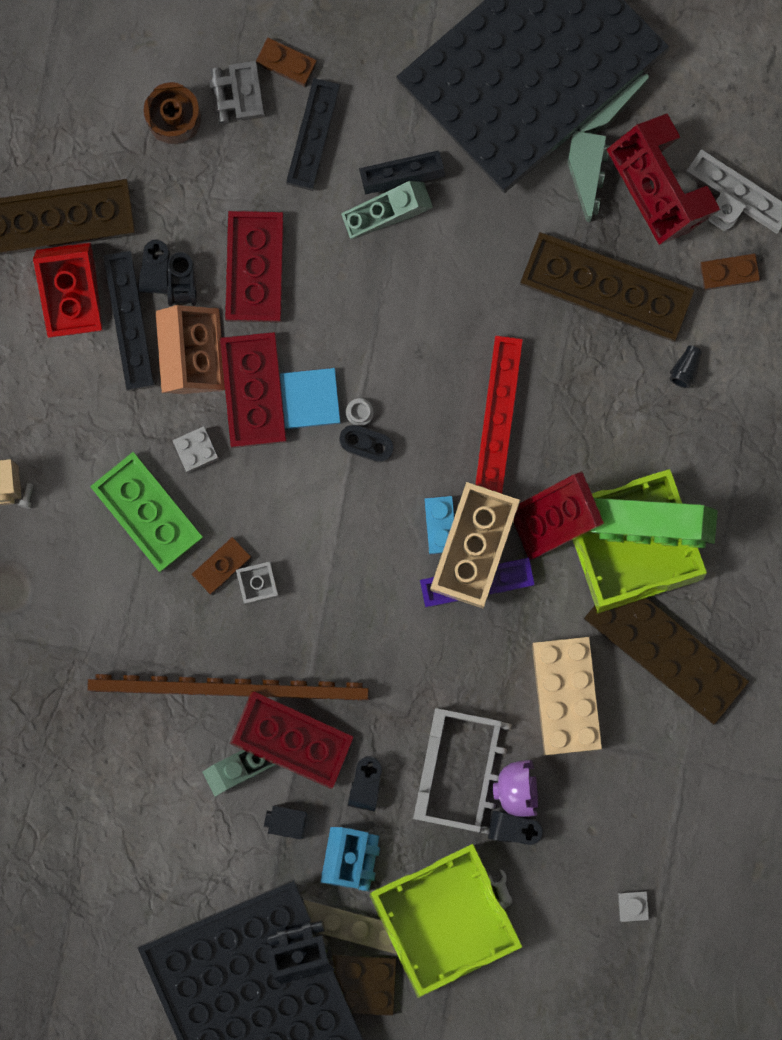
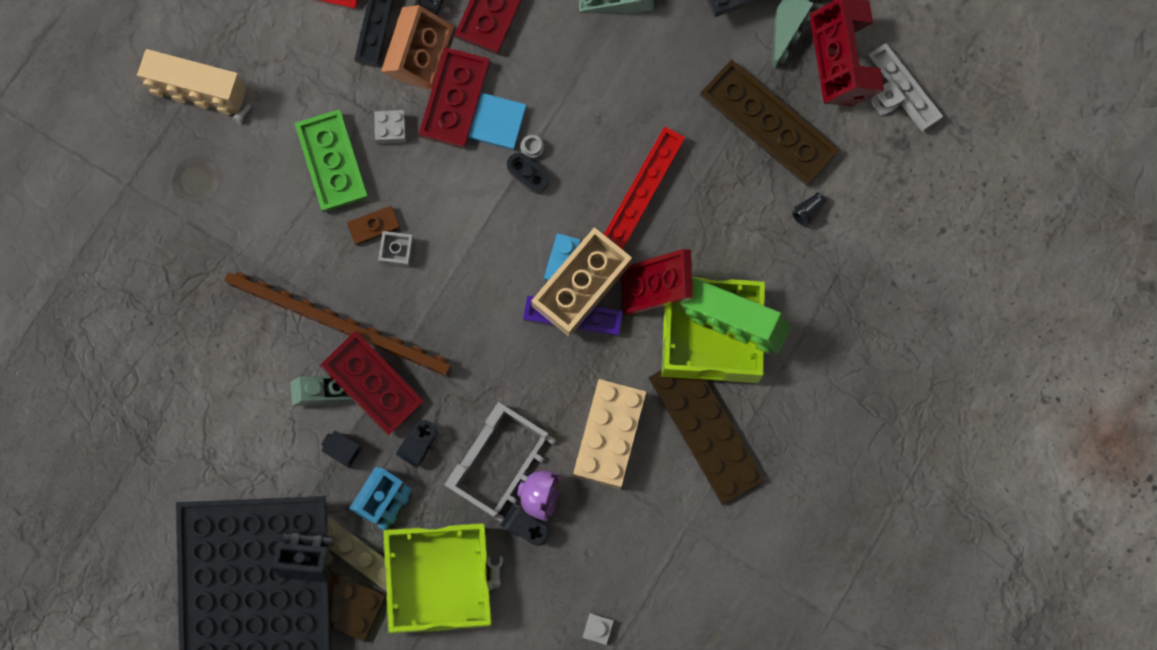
camera: 15 degrees right, 5 degrees down
(729, 272) = (872, 148): reddish brown plate -> none

